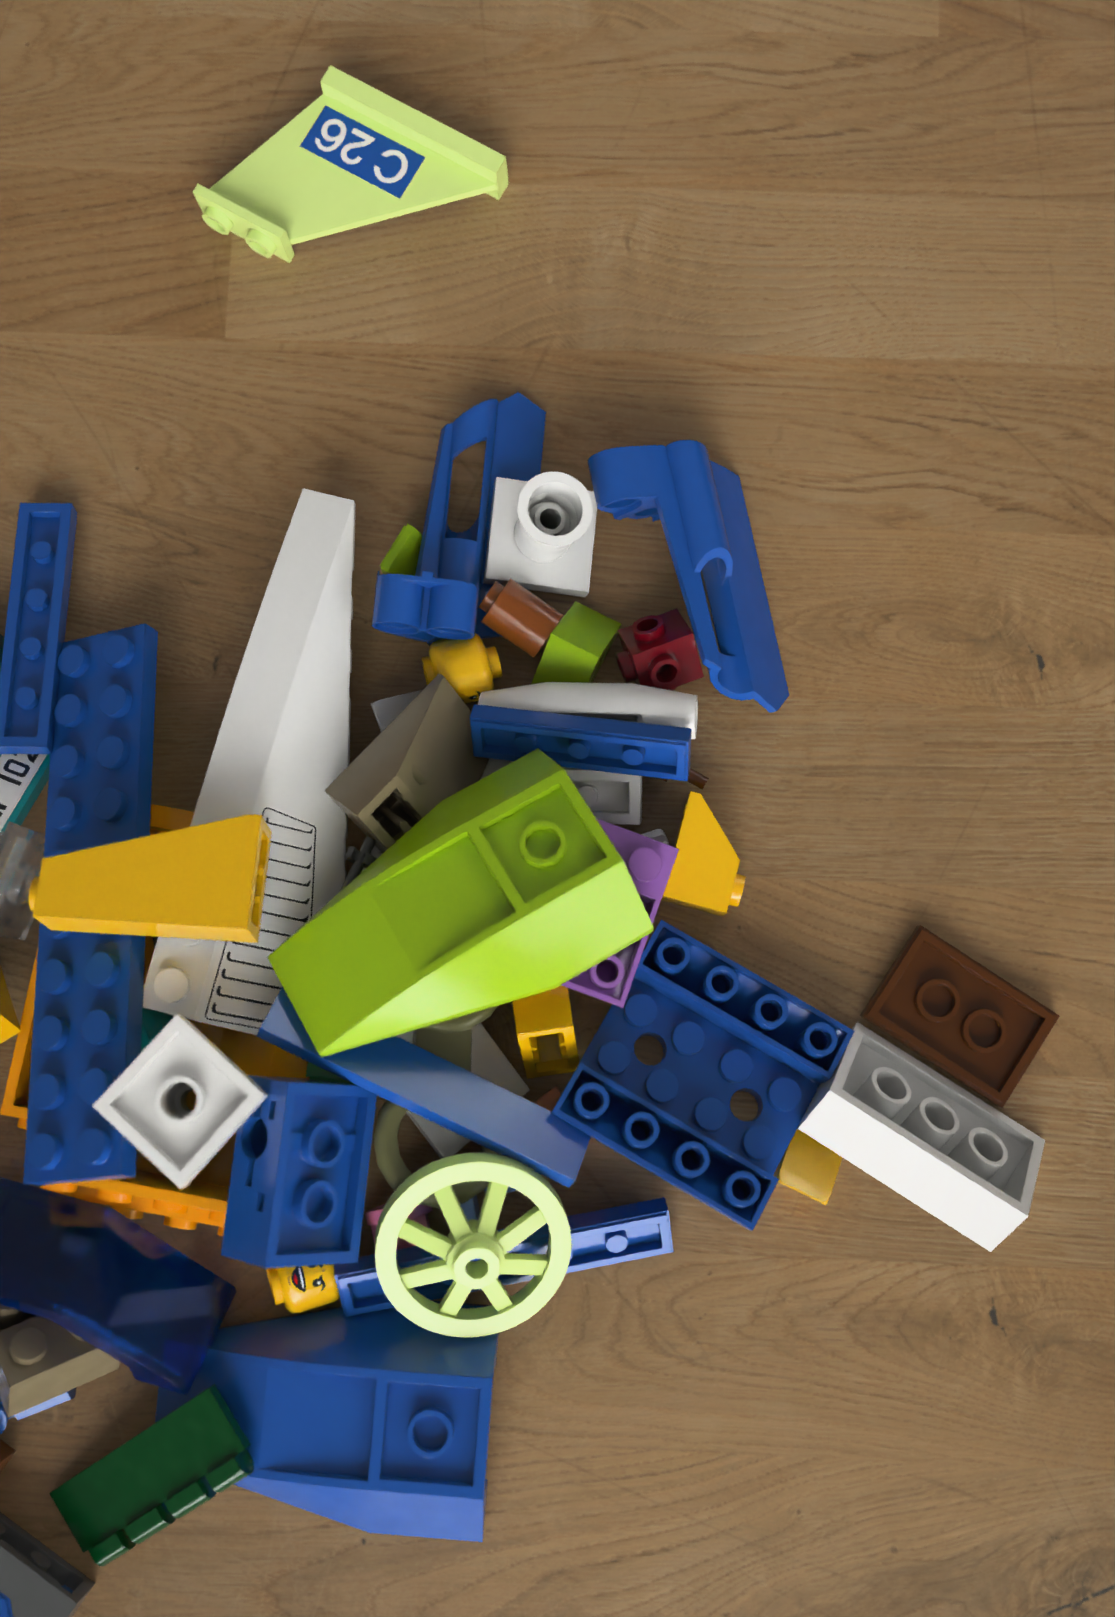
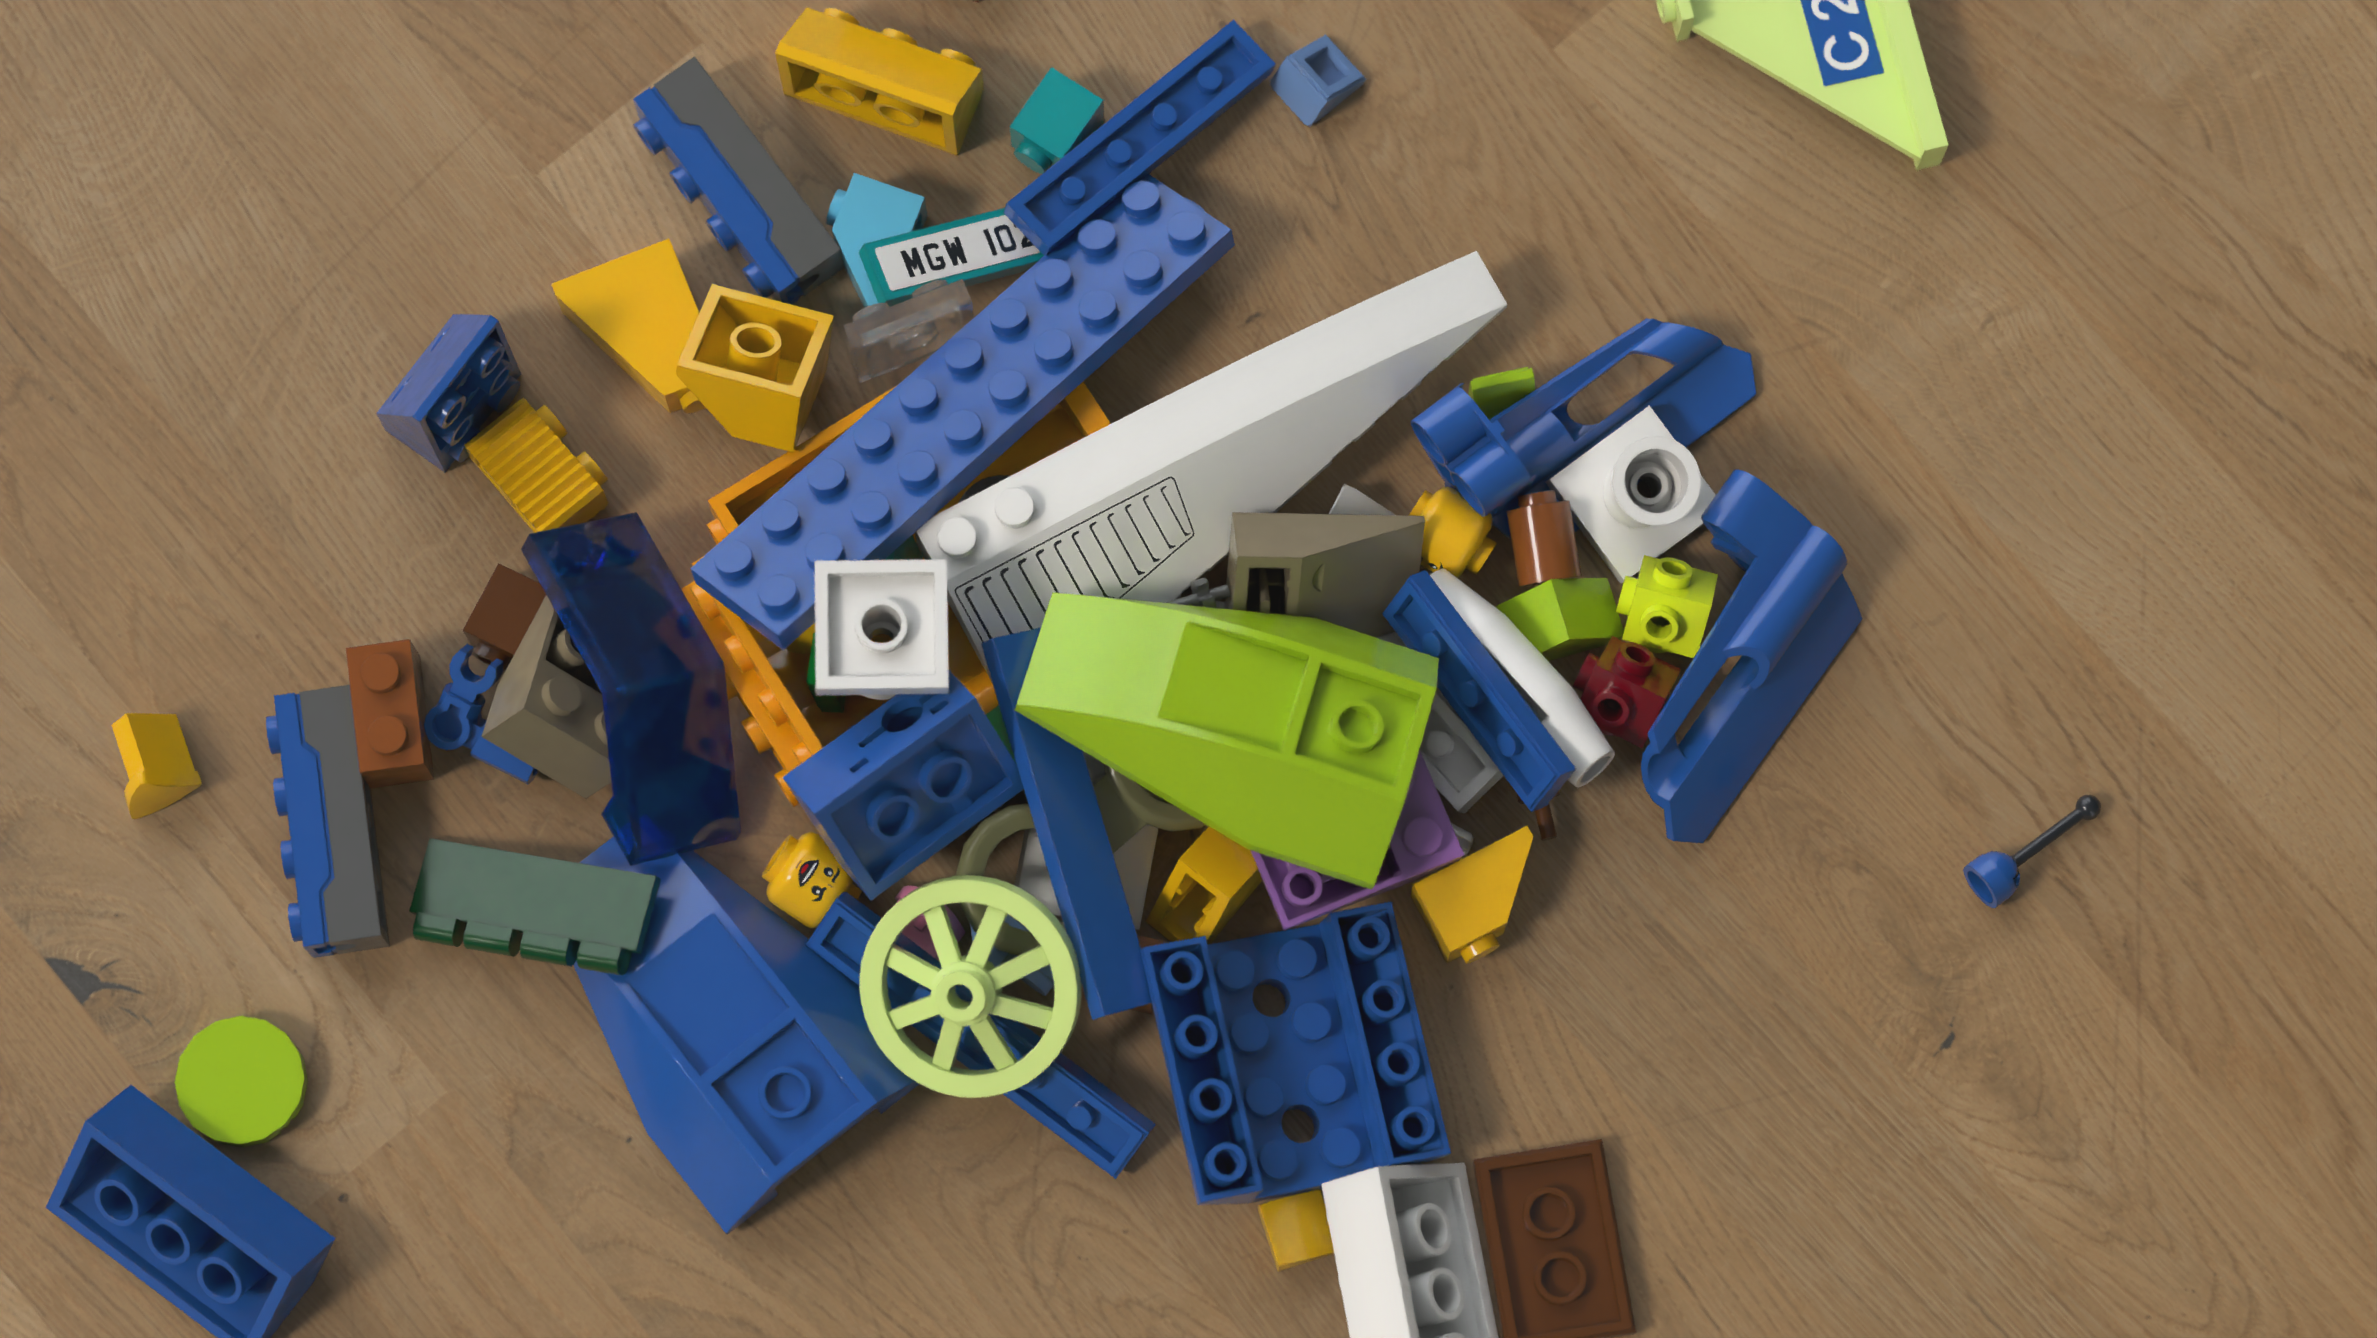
camera: 40 degrees right, 5 degrees down
(106, 490) = (1316, 80): none -> medium blue slope
(166, 884) = (1034, 454): yellow slope -> none
(630, 579) = (1667, 605): none -> neon yellow brick
(970, 540) = (1996, 874): none -> hinge

